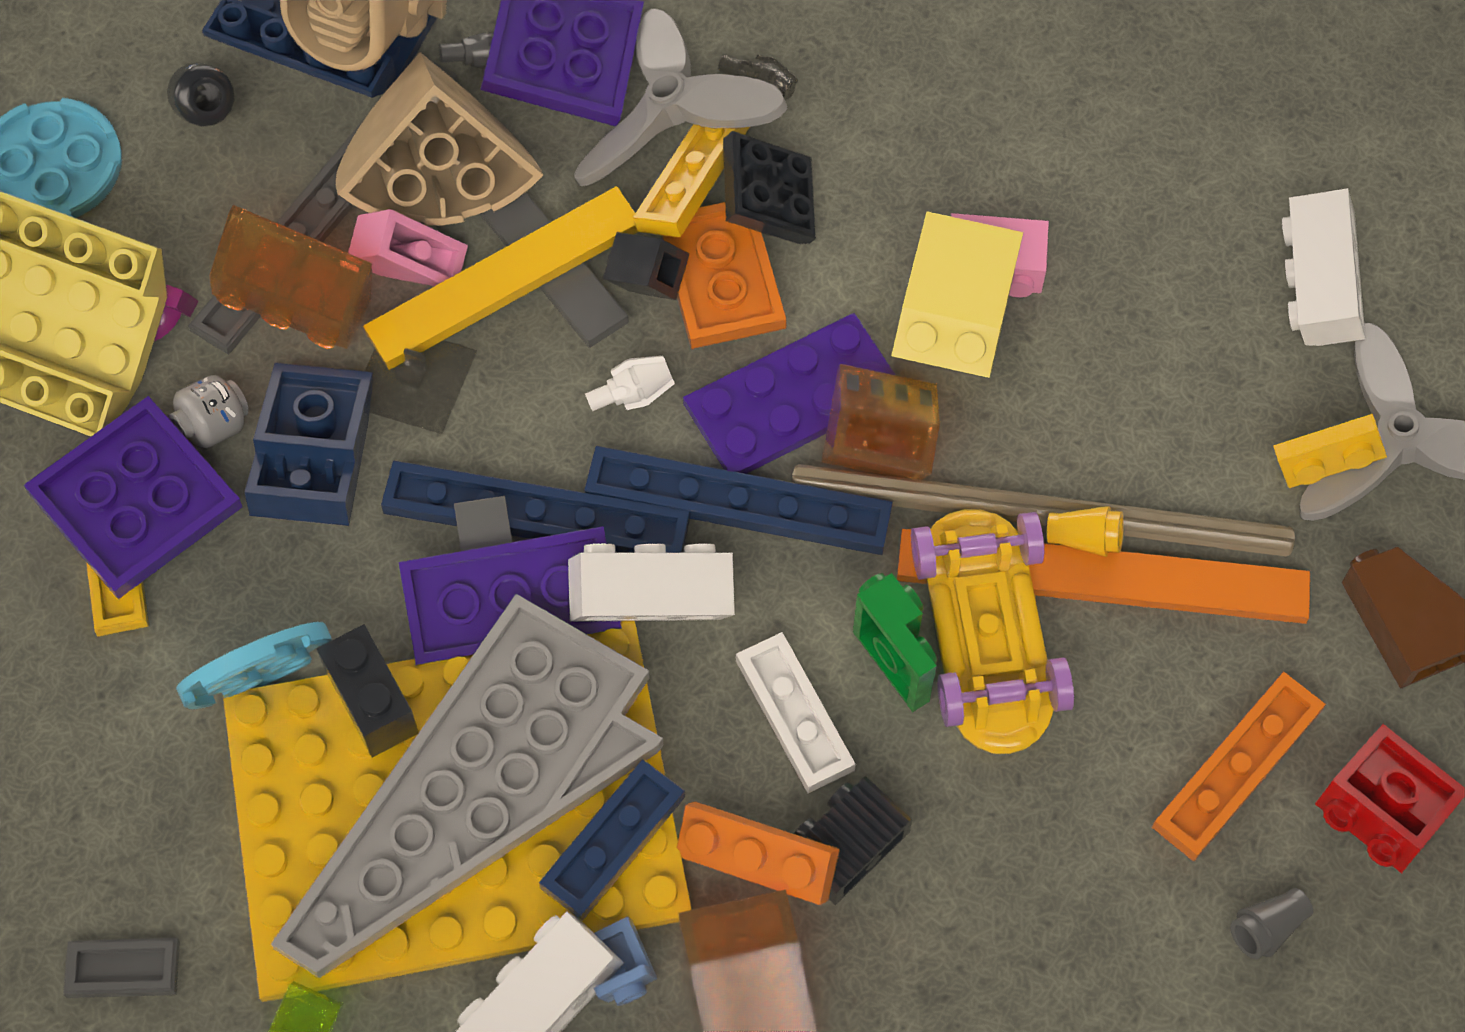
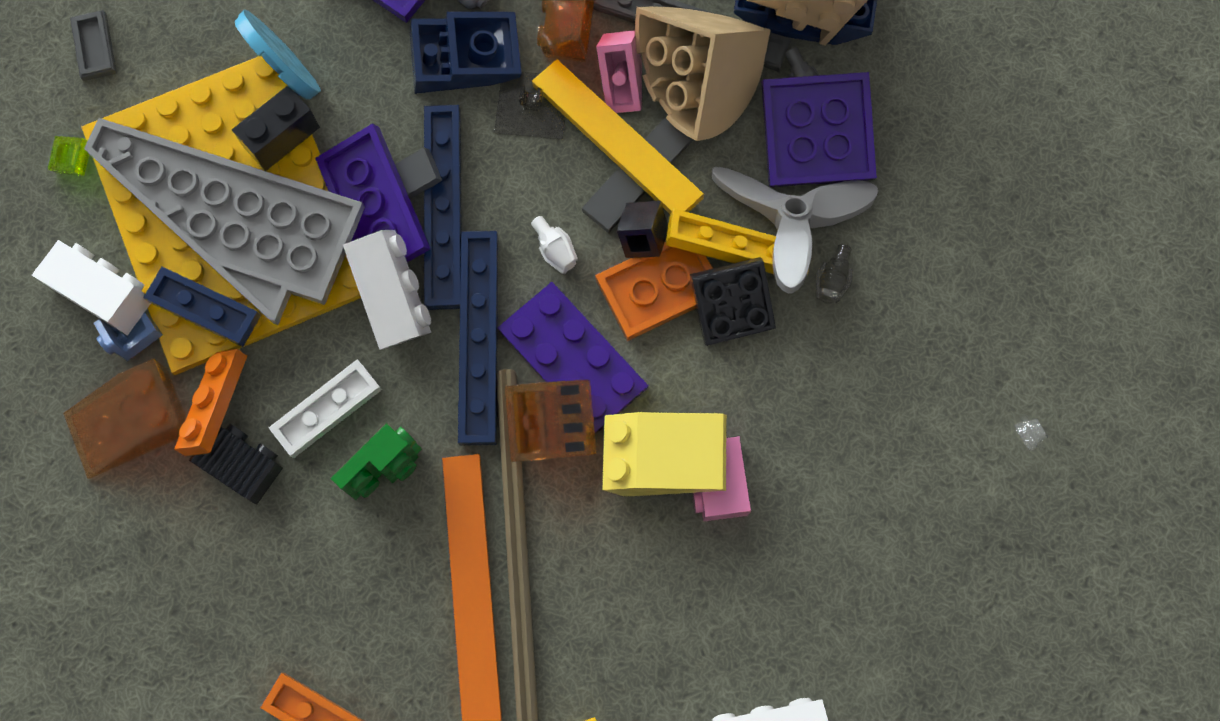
camera: 80 degrees right, 10 degrees up
(990, 629) = (410, 527): yellow piece -> none
(1088, 530) = (497, 587): yellow cone -> none

